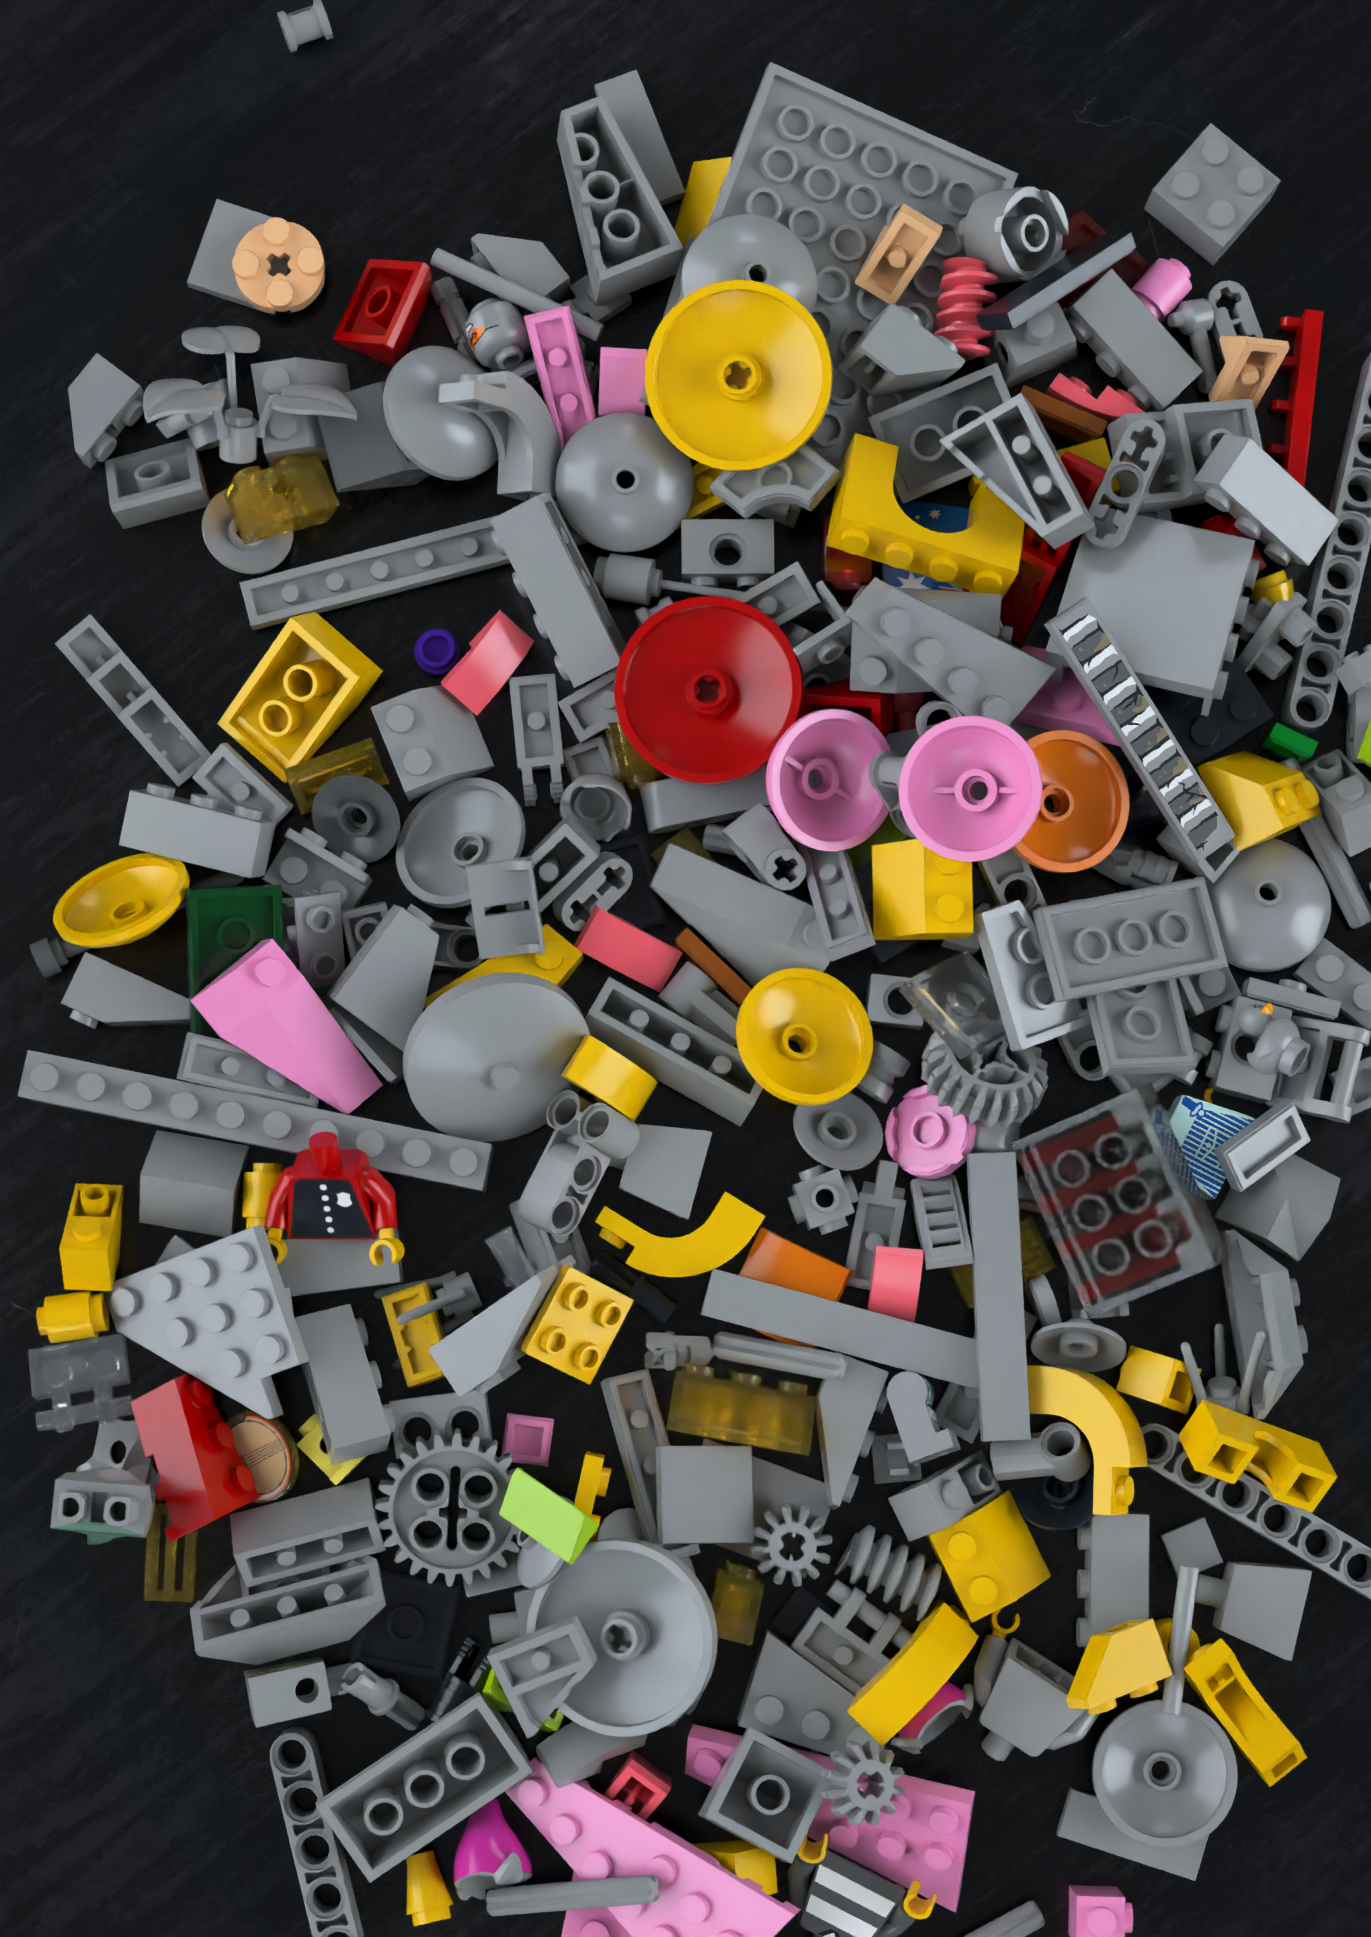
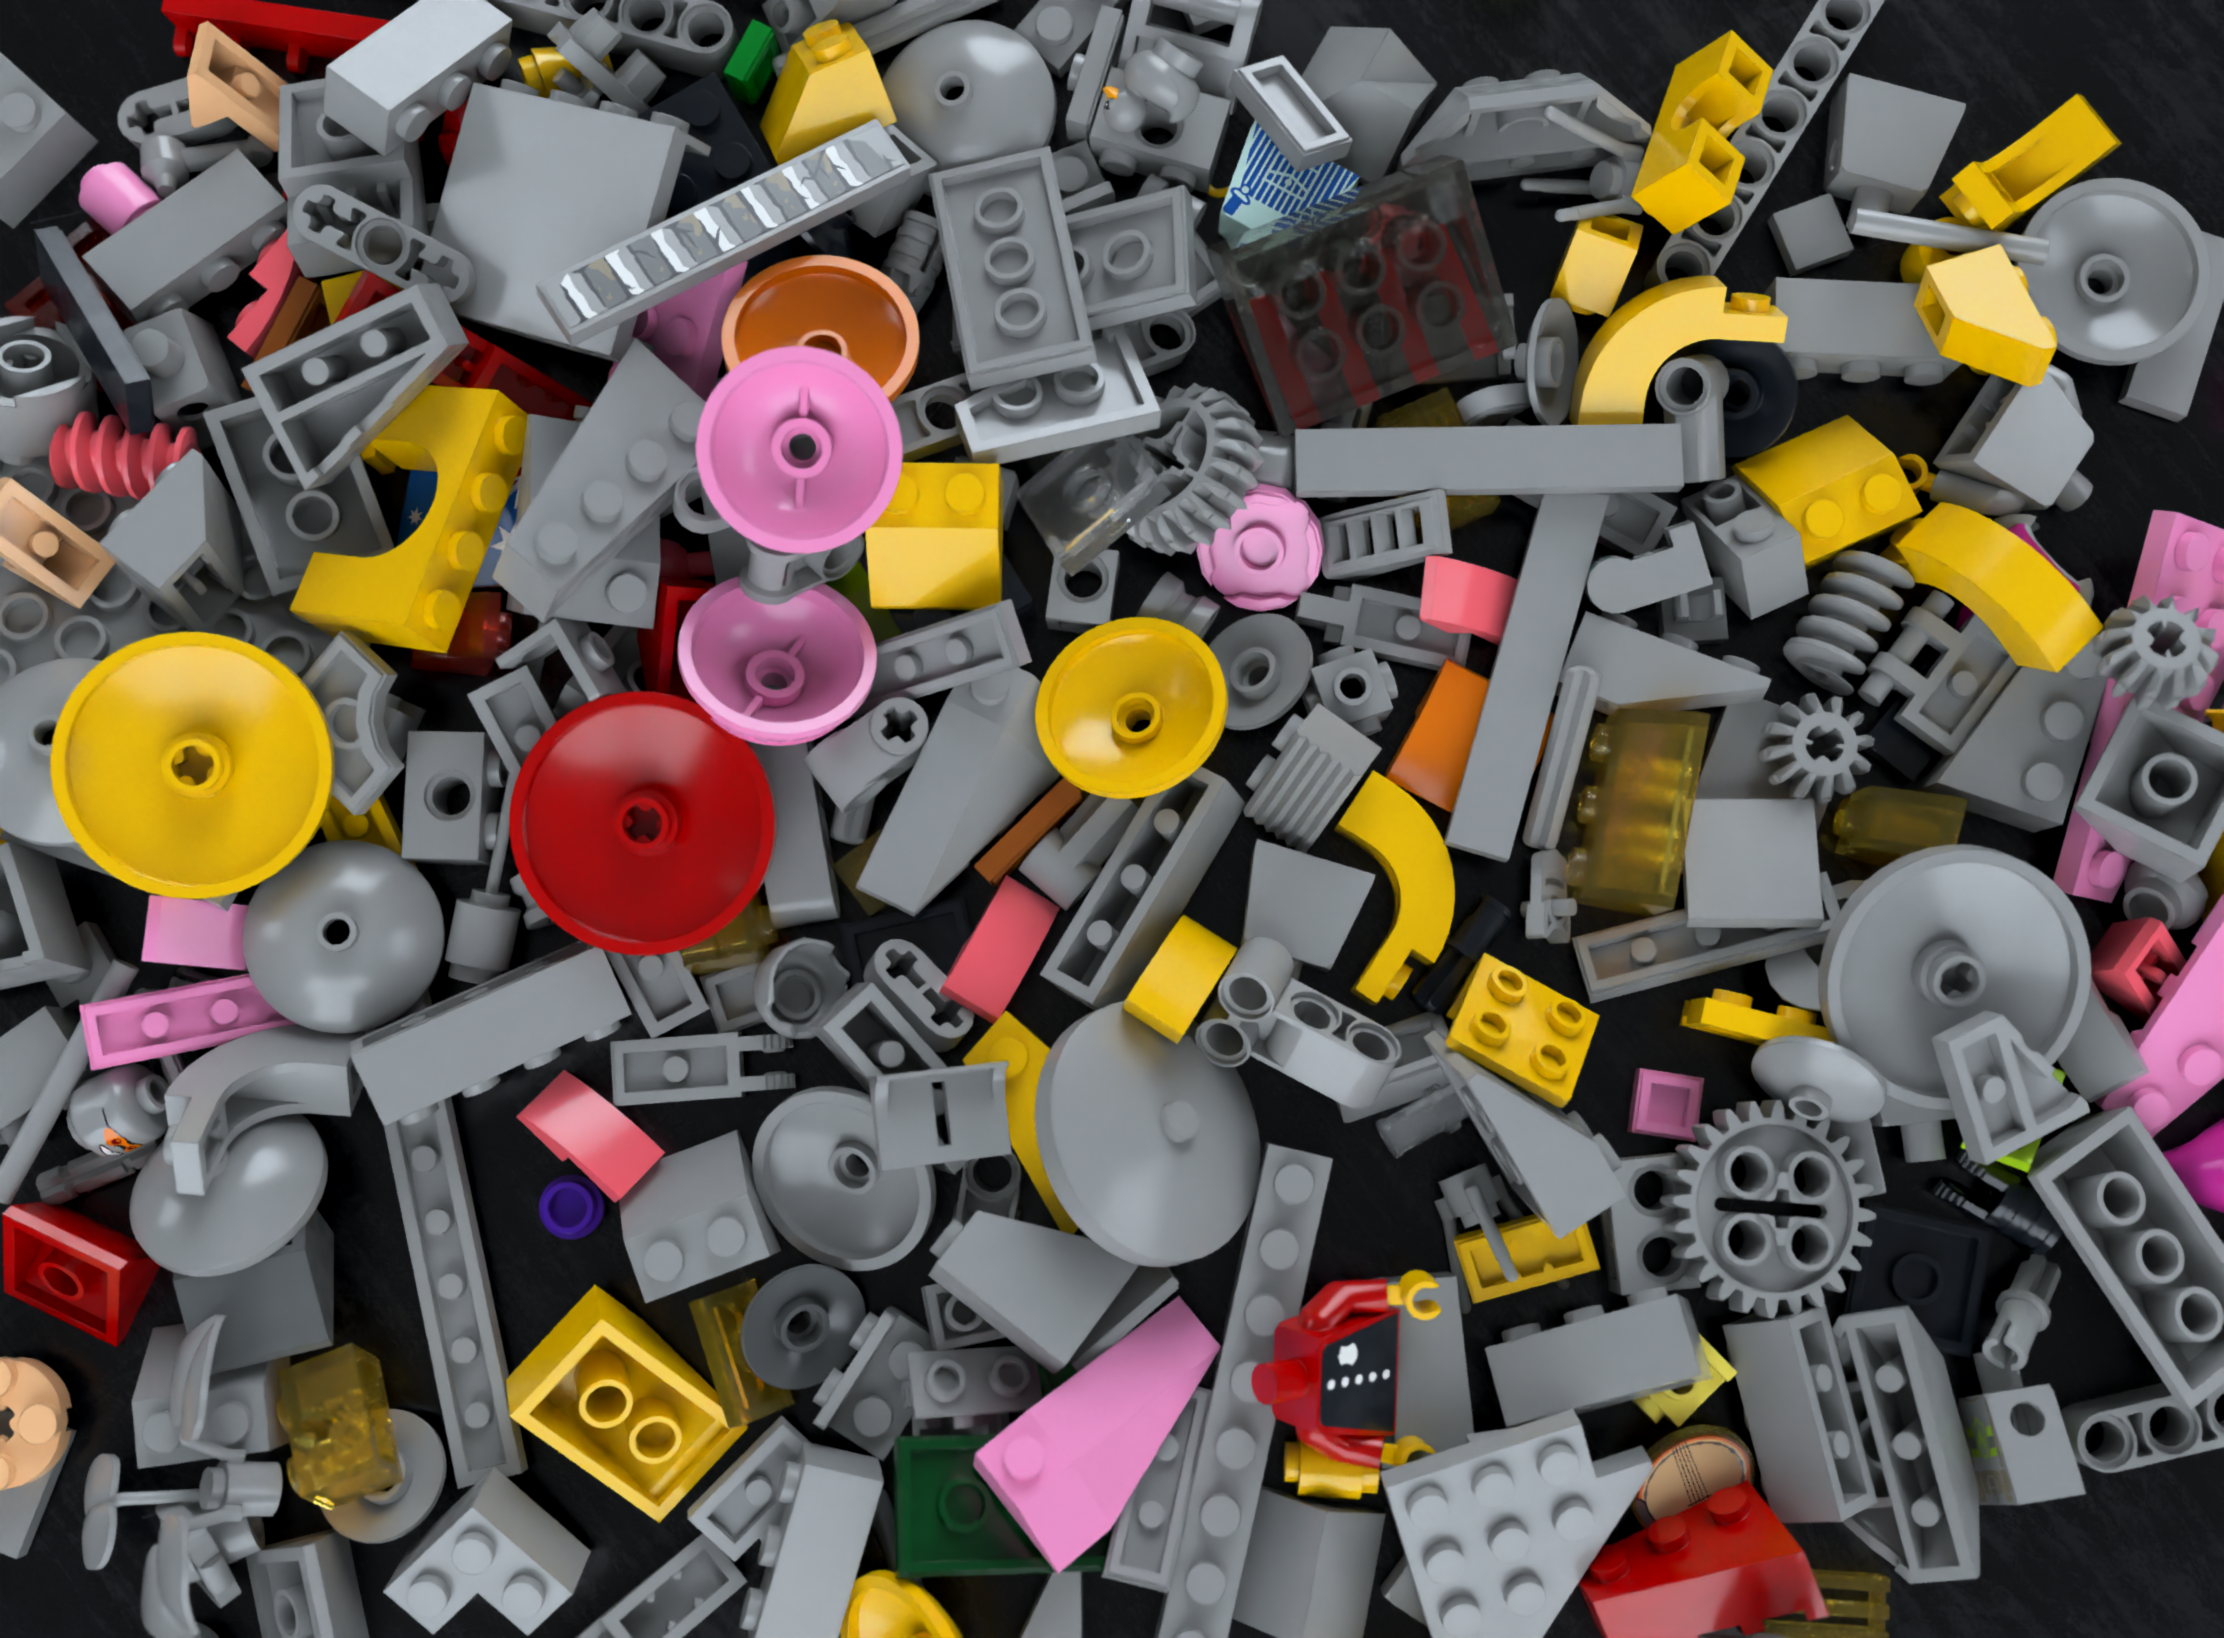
camera: 75 degrees left, 0 degrees up
(201, 609) = (492, 1546): none -> light grey brick
(546, 1517) = (1794, 1075): lime slope -> none
(683, 1807) = (2163, 898): none -> light grey animal
(757, 1169) = (1310, 778): none -> light grey brick

